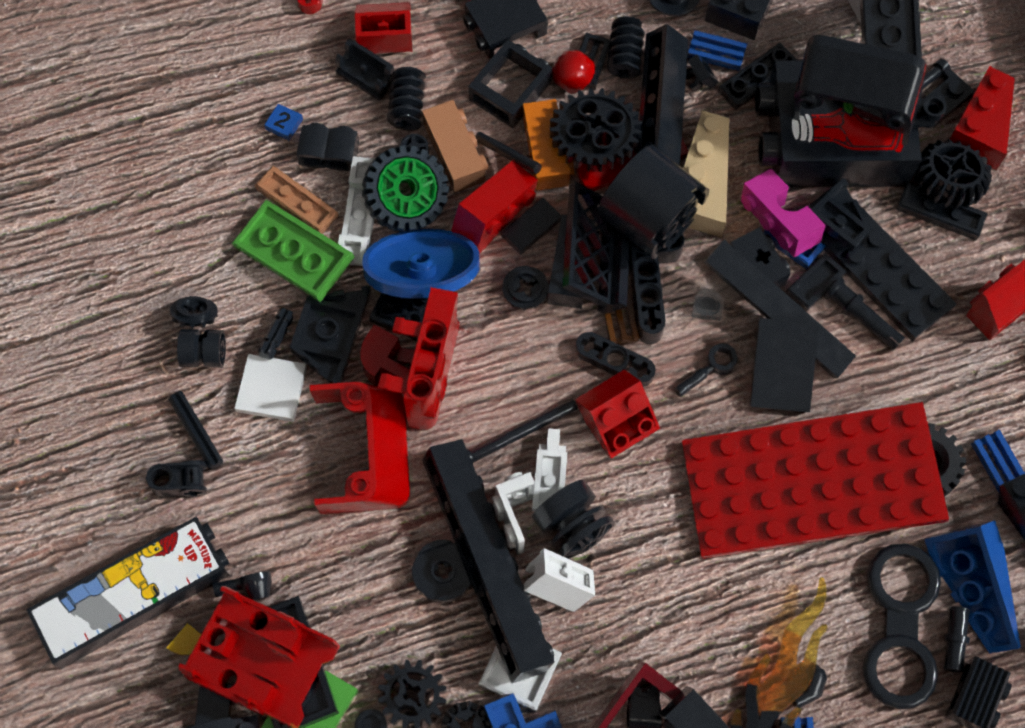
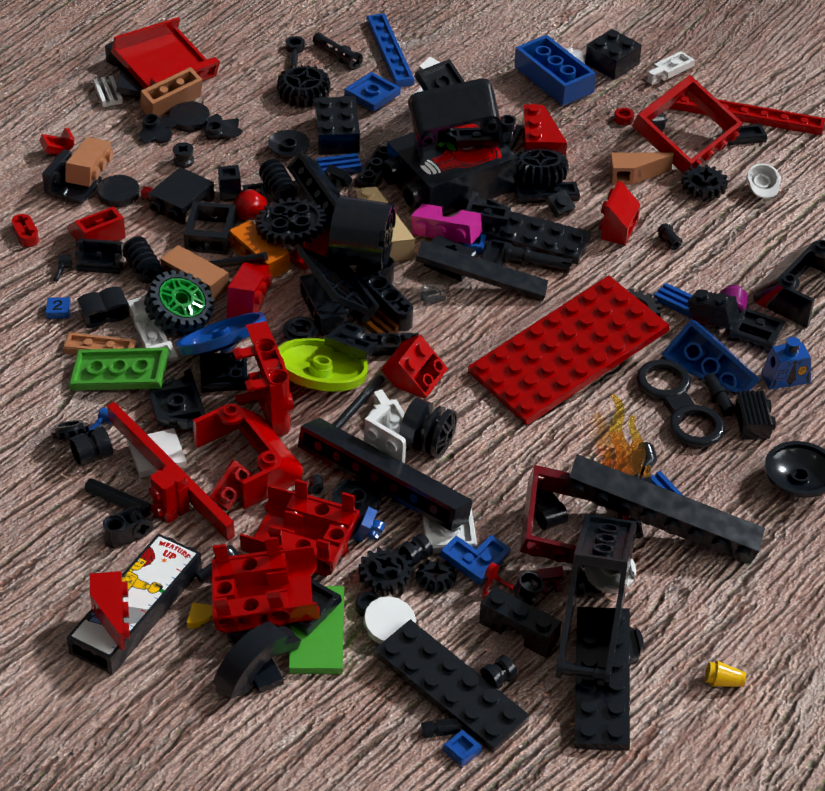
camera: 30 degrees left, 25 degrees down
(83, 595) = (108, 604): none -> red slope
(238, 465) = (169, 493): none -> red brick
(243, 306) = (102, 417): none -> blue hand
(261, 431) = (160, 459): none -> red tile
(275, 333) = (139, 416): black axle -> none
(312, 484) = (229, 485): none -> red hips
(325, 56) = (64, 261): none -> black hand
(348, 579) = (306, 521): none -> red piece
(378, 355) = (224, 393): red brick -> none
(411, 525) = (315, 484): none -> black hand
(430, 619) = (369, 526): none -> blue tile
(462, 683) = (417, 549): none -> black wheel
(511, 359) = (321, 367): none -> lime dish
(531, 226) = (280, 298): black tile -> none
(558, 339) = (347, 339): none -> black plate
(560, 580) = (443, 463): white hinge -> none
(567, 26) = (229, 182): none -> black brick
(702, 373) = (458, 323): black piece -> none
(784, 365) = (505, 299): black tile -> none
(946, 239) = (560, 203): none -> black plate

